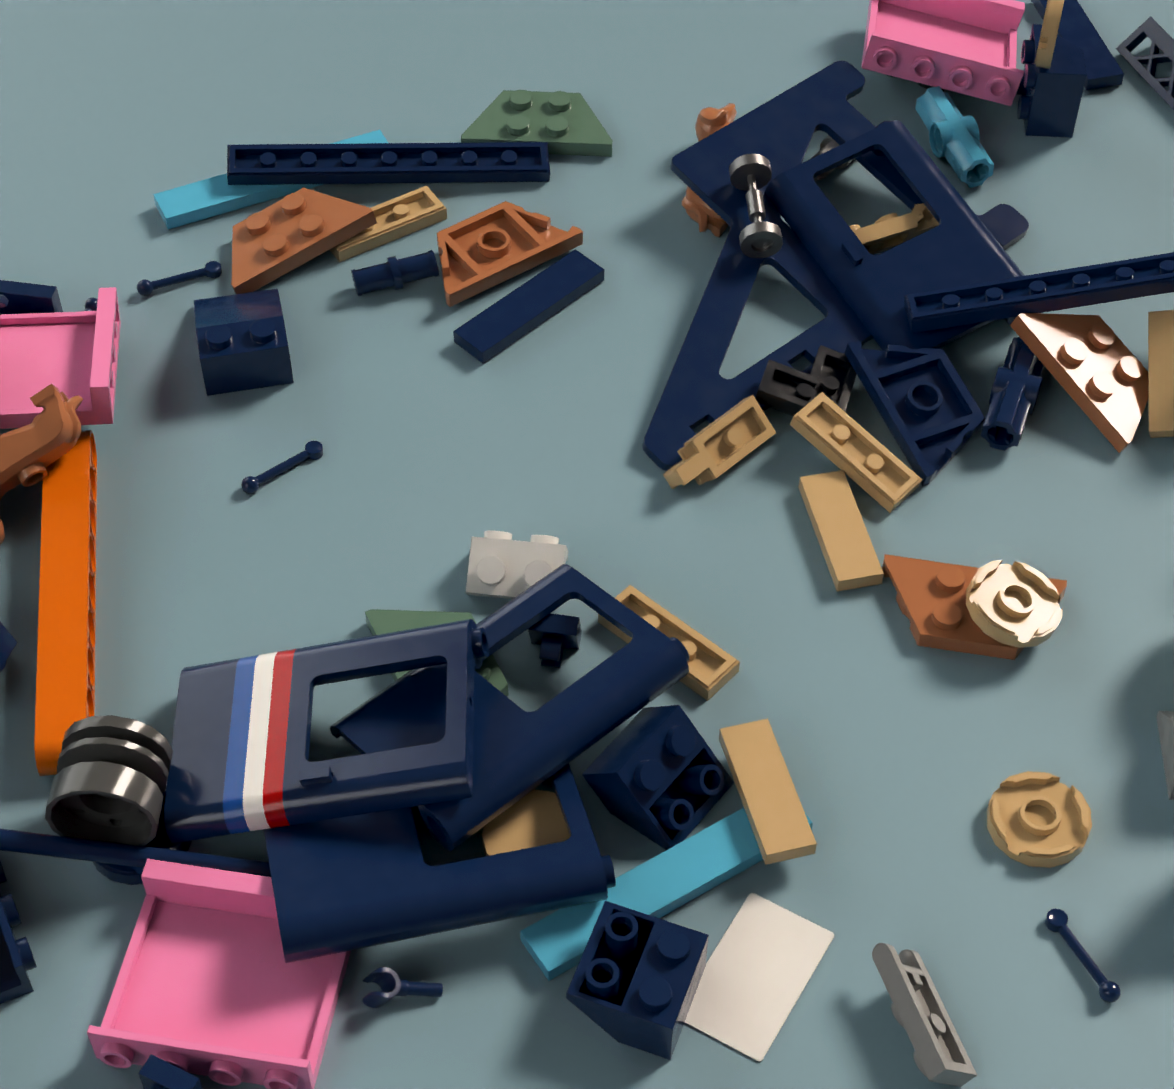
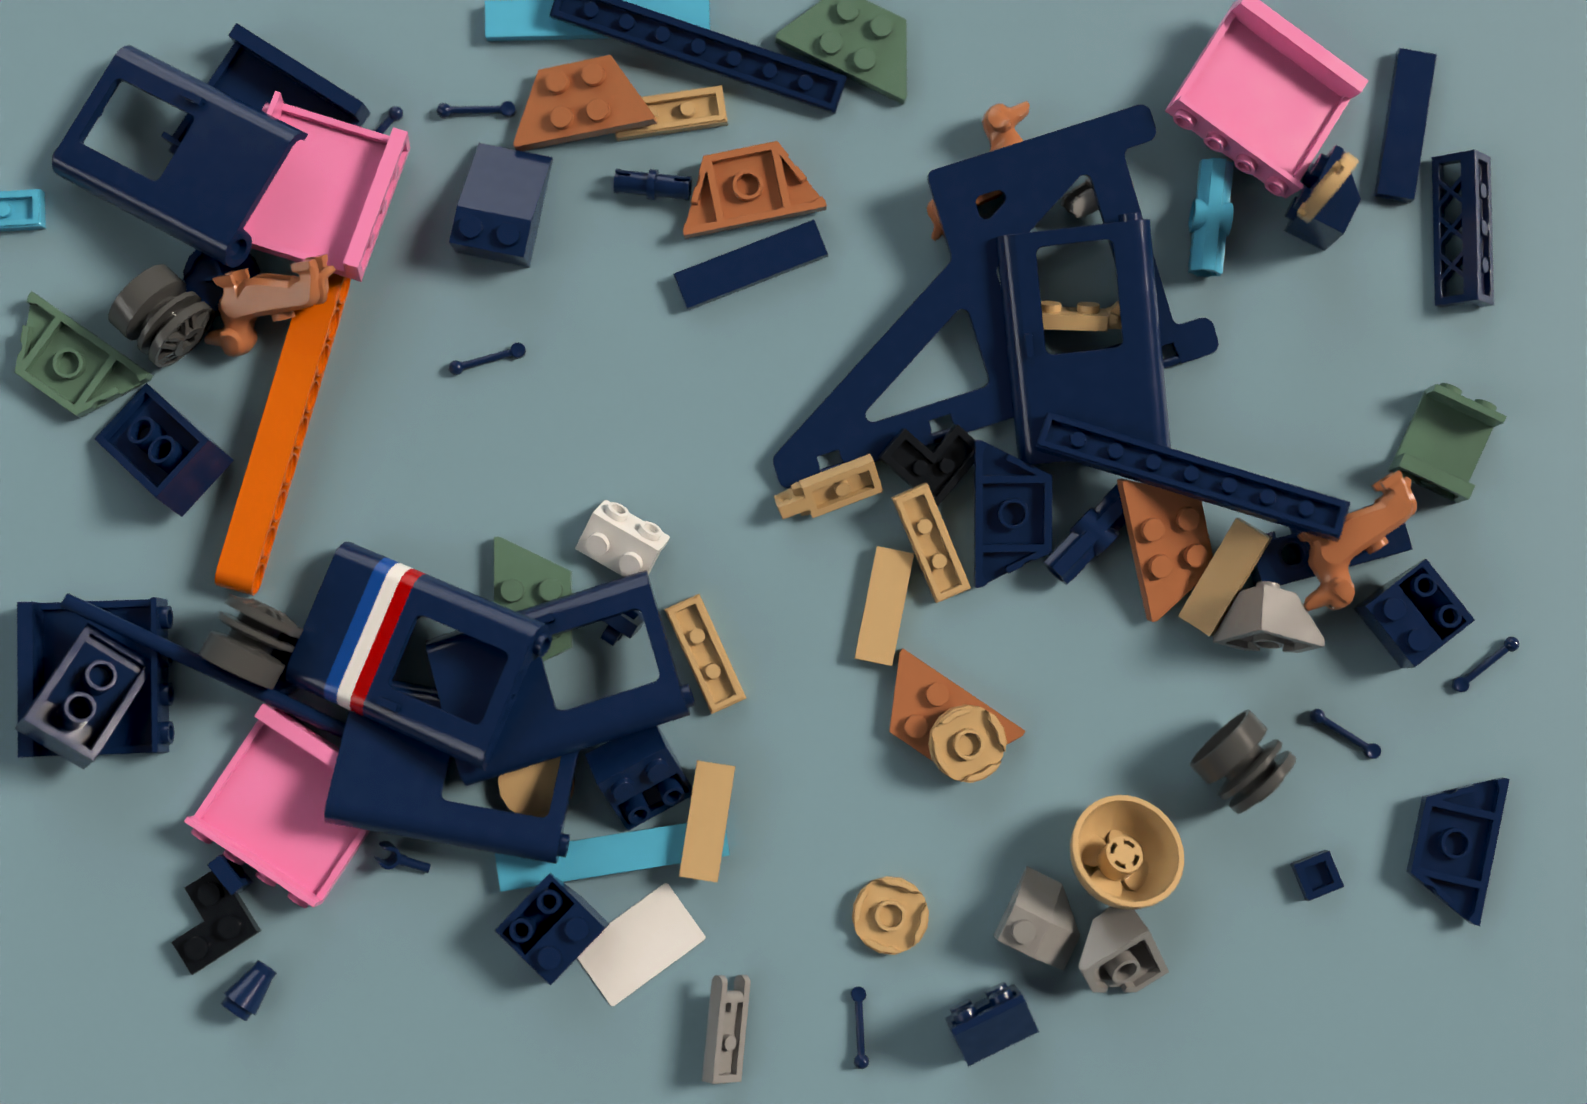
camera: 25 degrees right, 35 degrees up
(761, 237) = (973, 260): flat silver wheel -> none

